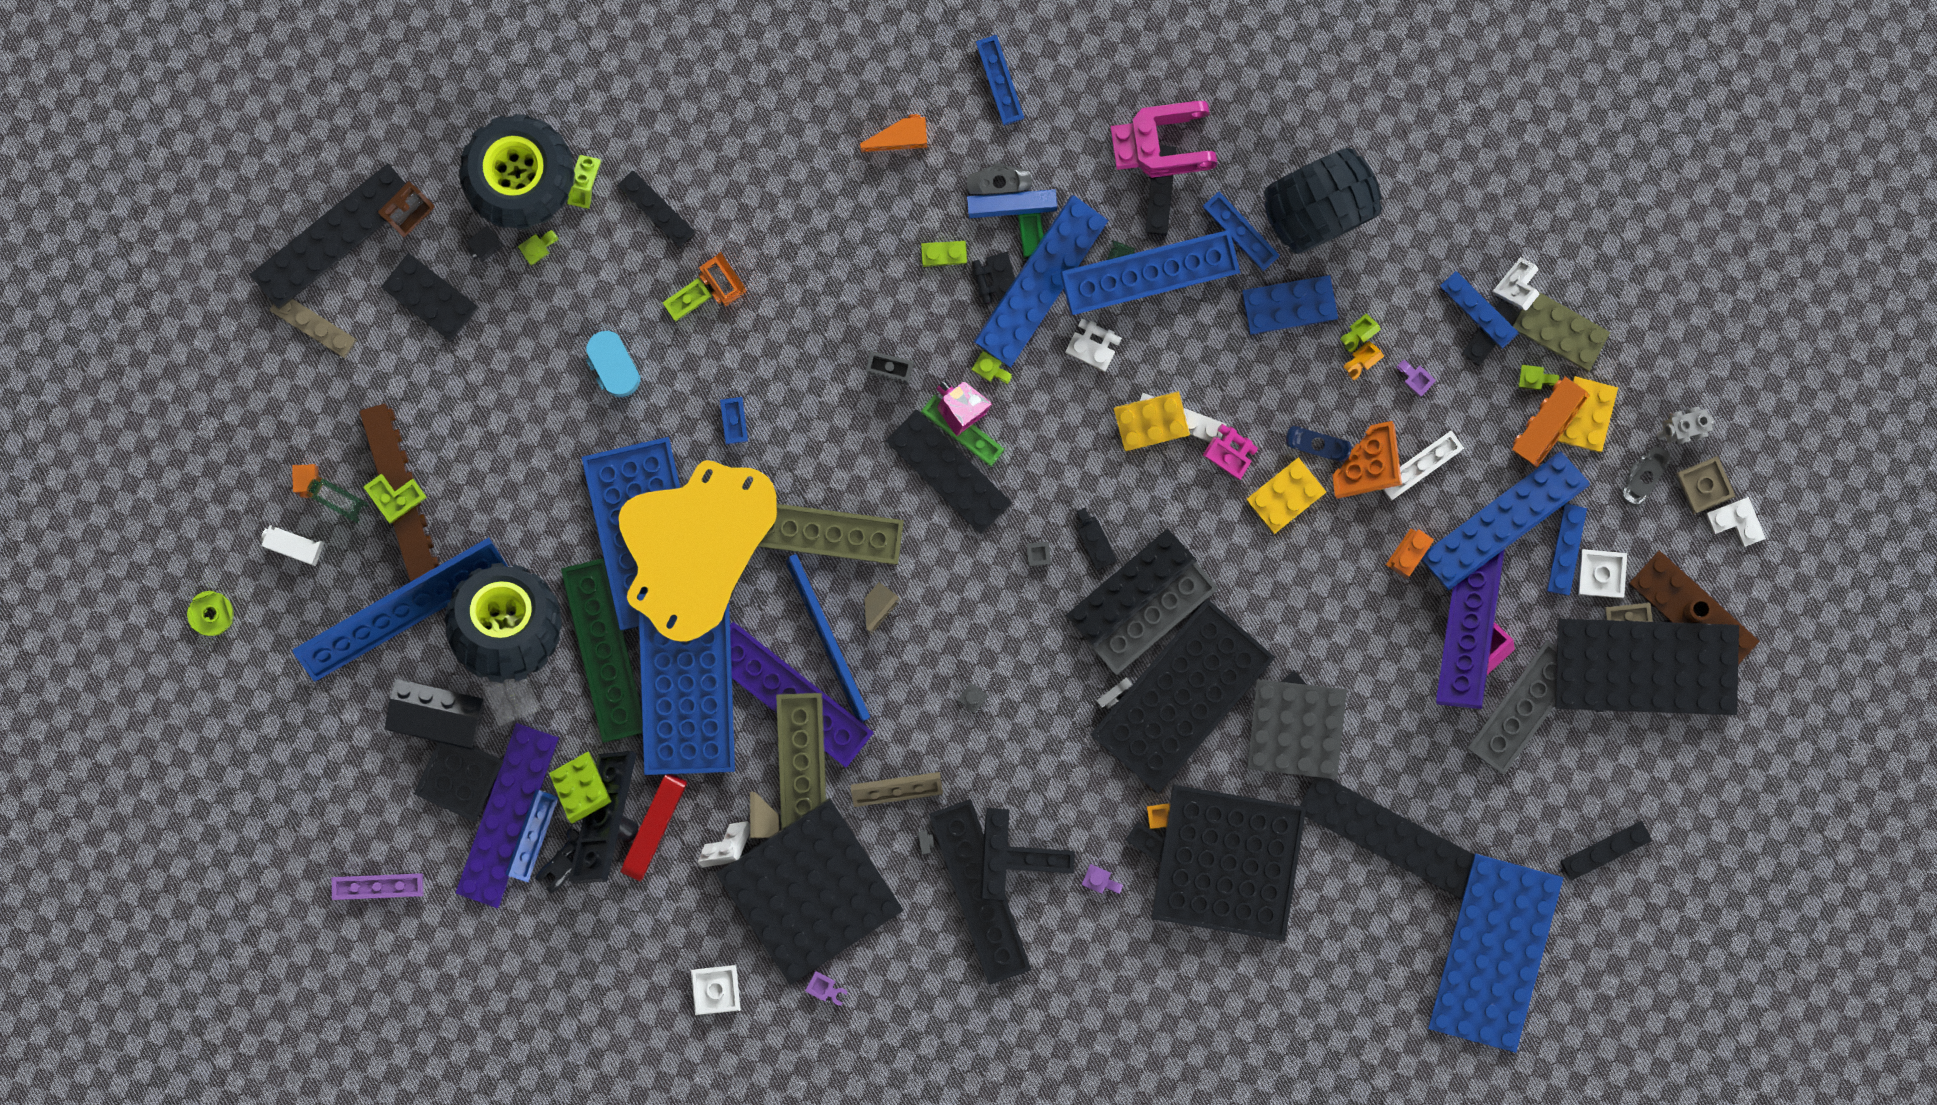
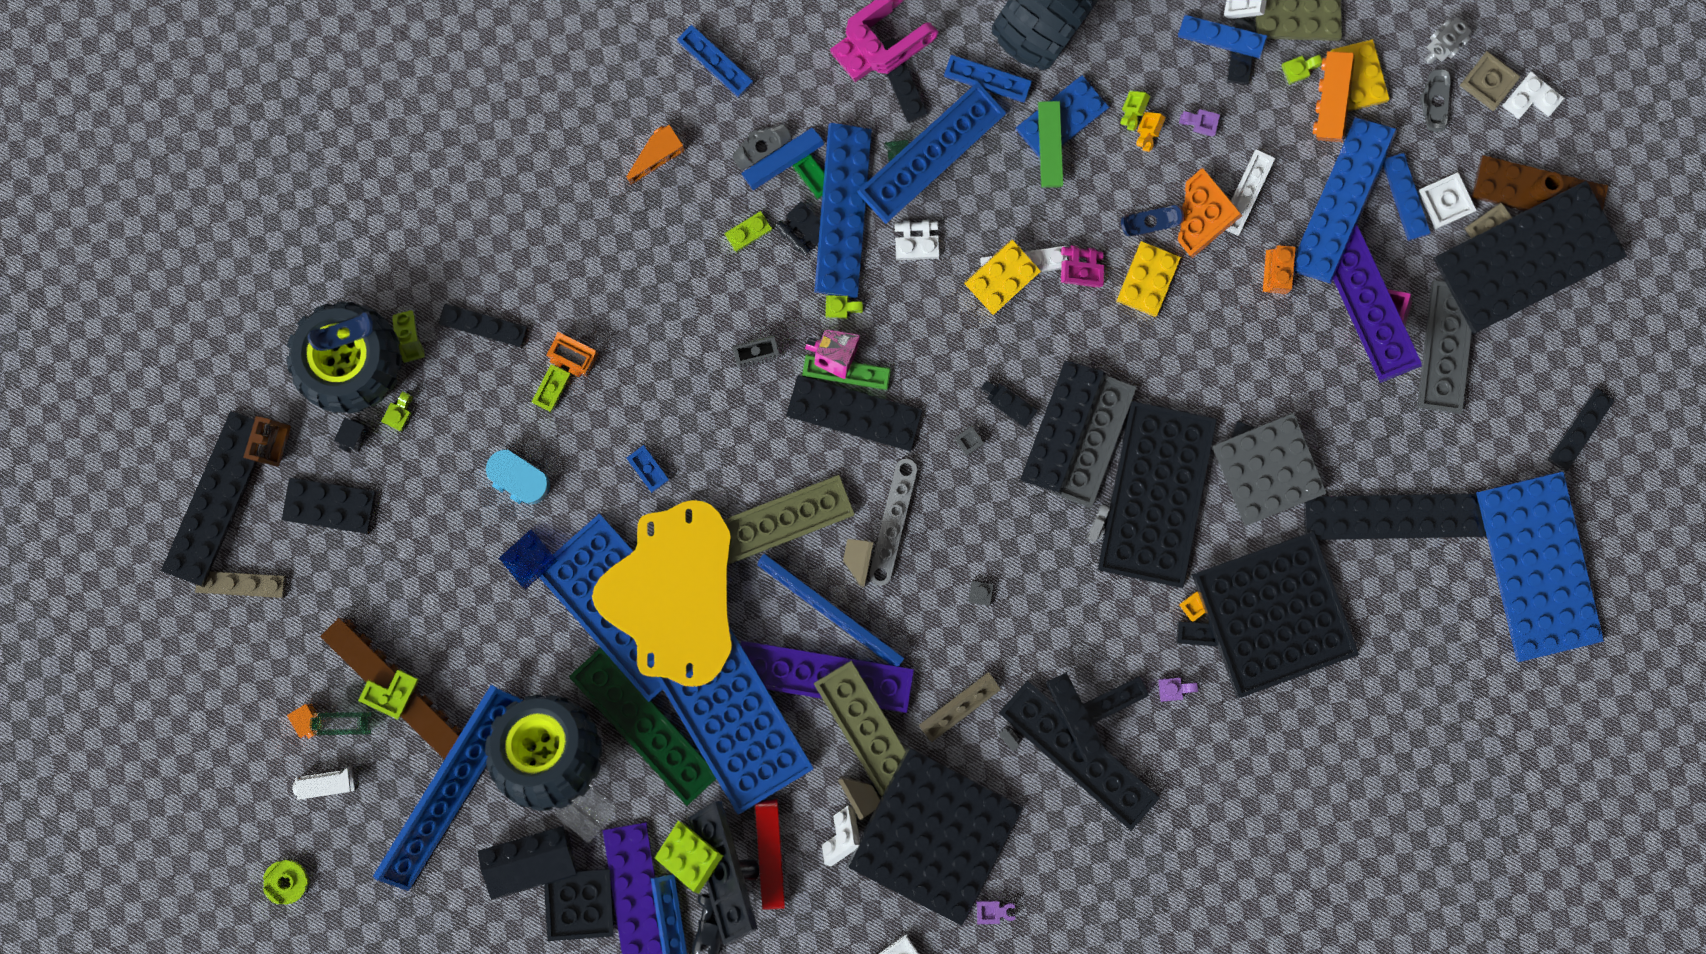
camera: 30 degrees left, 0 degrees up
(512, 150) = (328, 337): none -> dark blue piece
(582, 443) = (528, 559): none -> clear blue plate
(929, 590) = (893, 522): none -> light grey plate
(1263, 323) = (1050, 144): none -> bright green tile

